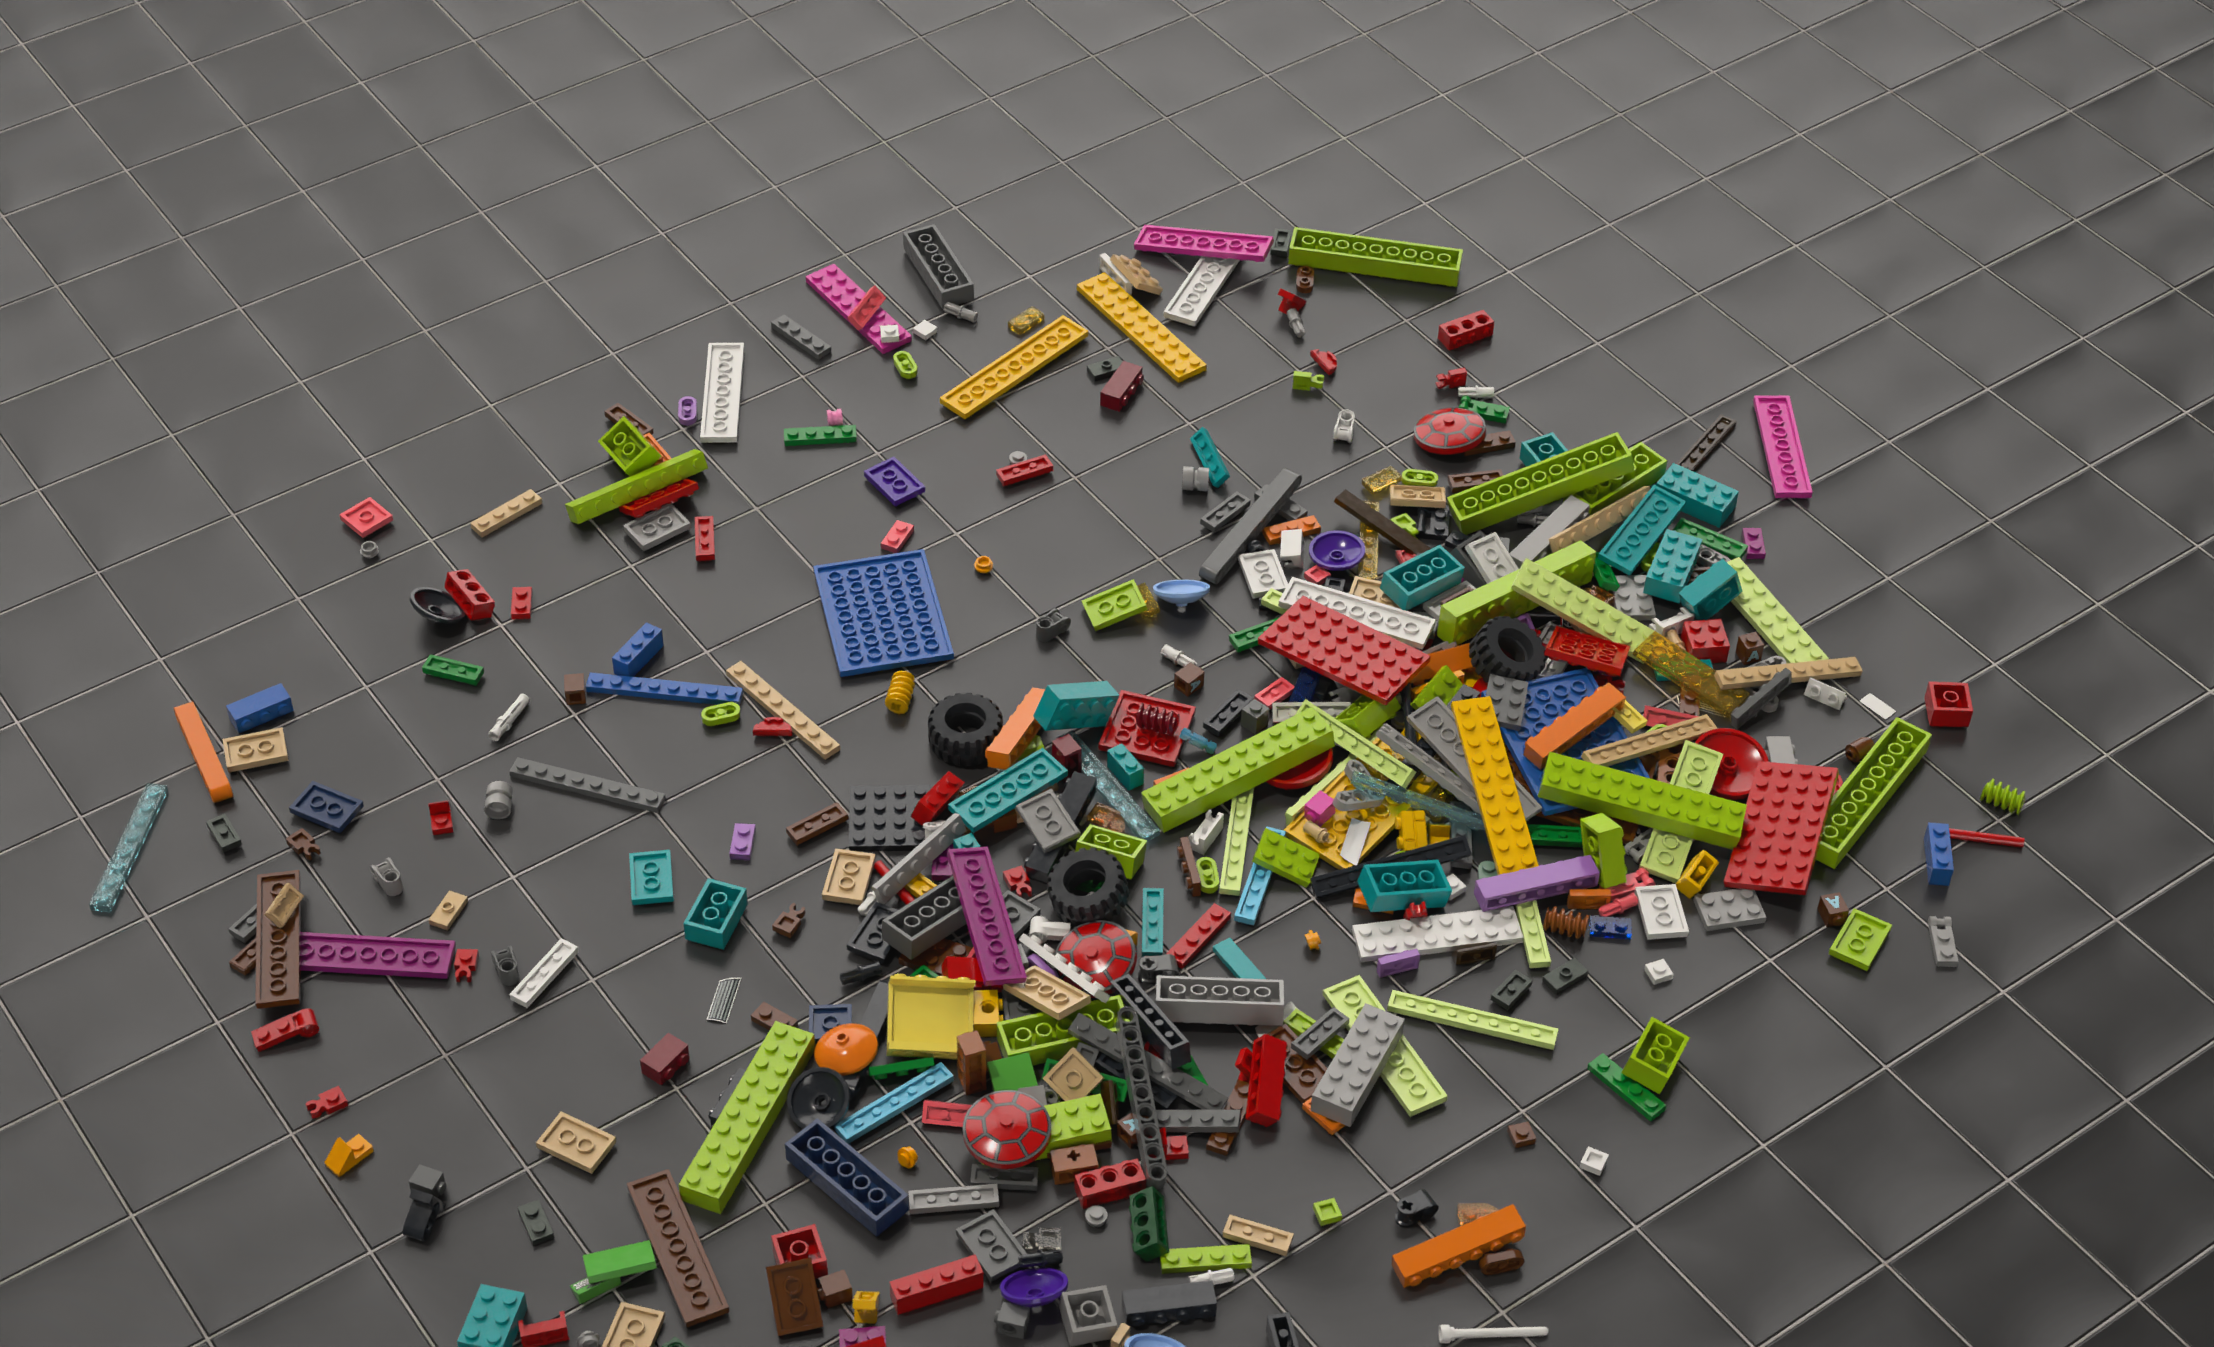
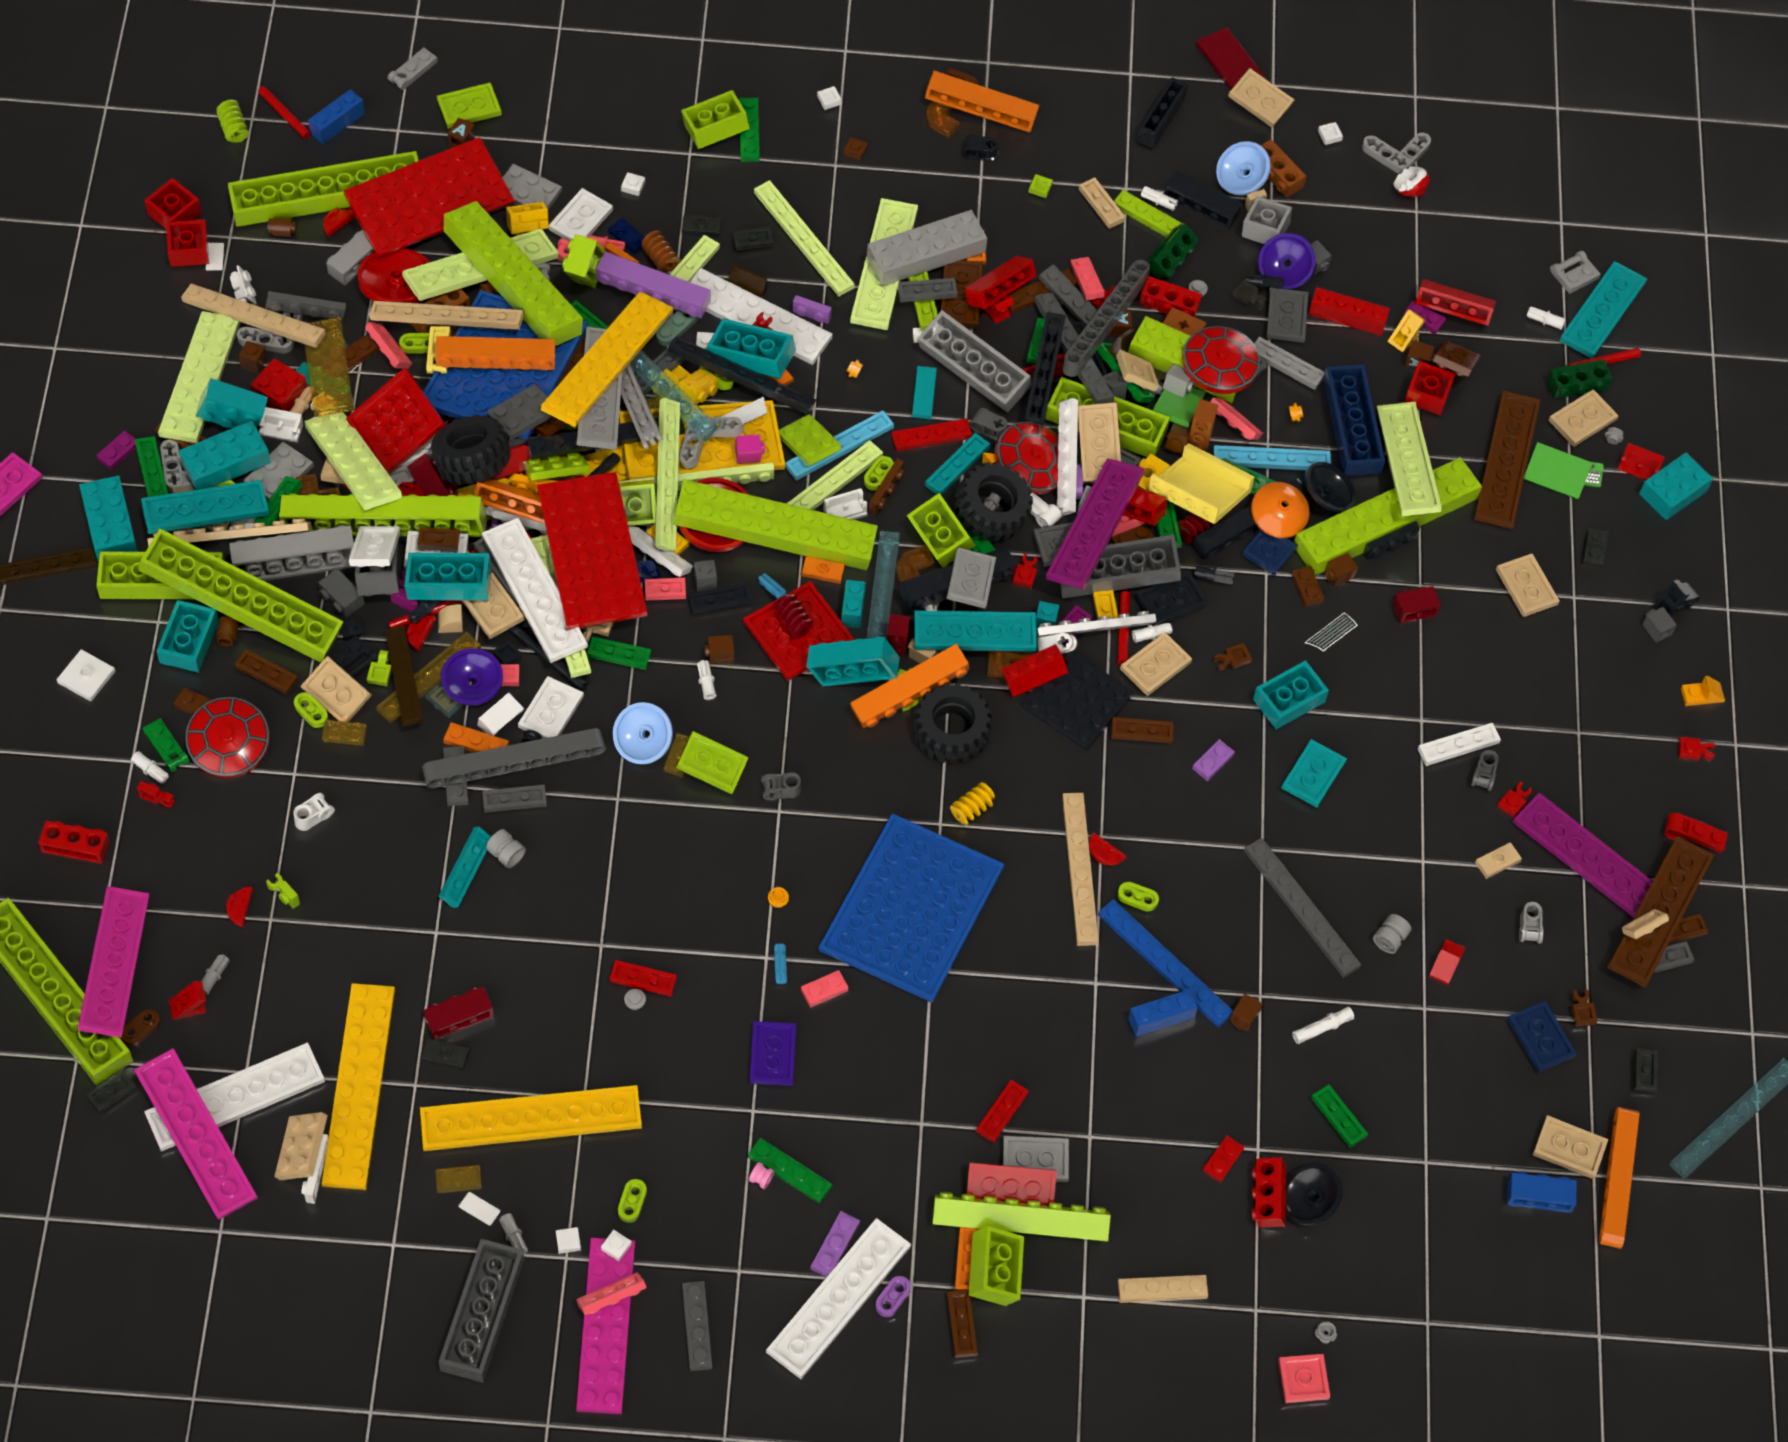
camera: 145 degrees left, 15 degrees up
(751, 1043) = (1341, 569): none -> reddish brown brick
(752, 417) = (835, 1244): none -> medium lavender plate
(764, 1158) = (1408, 459): none -> yellowish green plate
(942, 531) = (780, 963): none -> dark azure axle
(997, 317) = (479, 1208): none -> white sticker
(1200, 1148) = (1087, 278): none -> coral plate
(1320, 834) = (768, 437): tan pin -> none
(1357, 282) = (113, 962): none -> dark pink plate
(1448, 1333) = (1040, 68): white piece -> none
(1585, 414) = (86, 675): none -> white plate
(1901, 687) = (187, 243): none -> red brick

